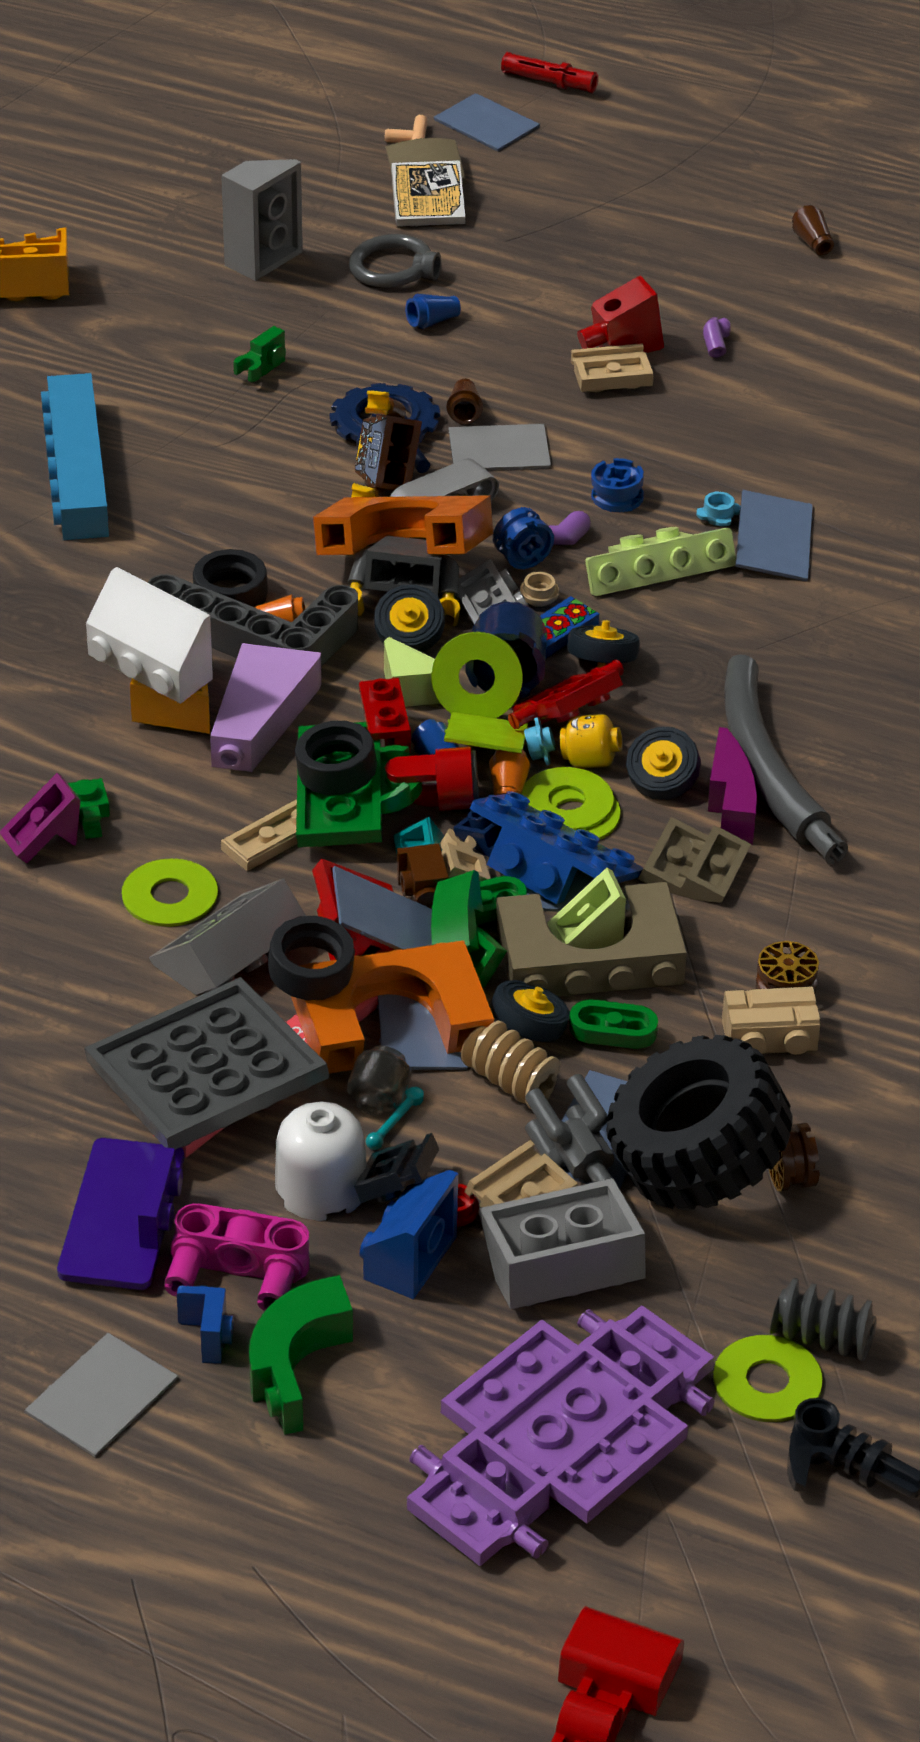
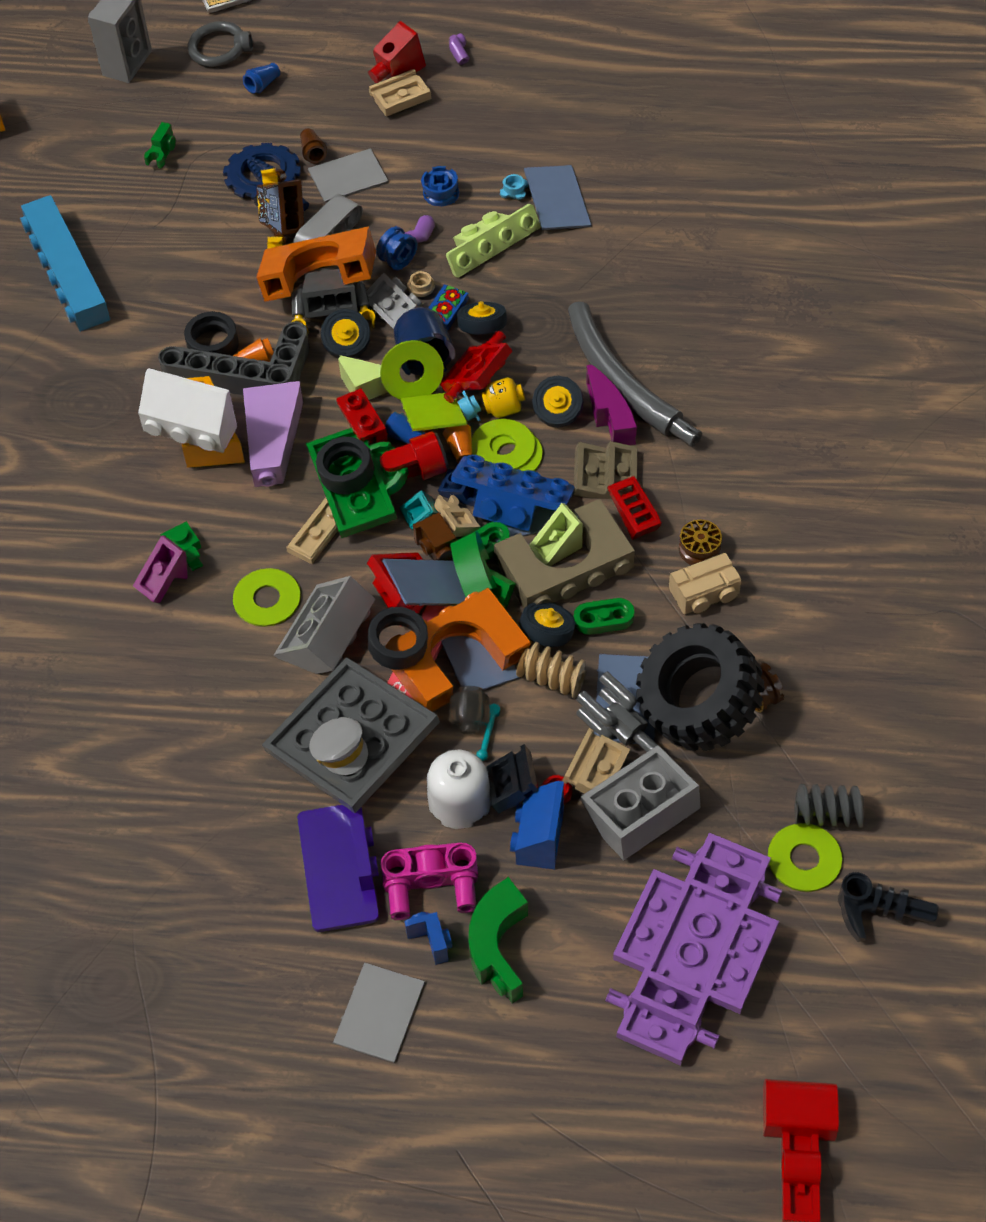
camera: 15 degrees left, 15 degrees up
(181, 1065) = (339, 746): none -> light grey piece
(713, 937) = (635, 530): none -> red slope

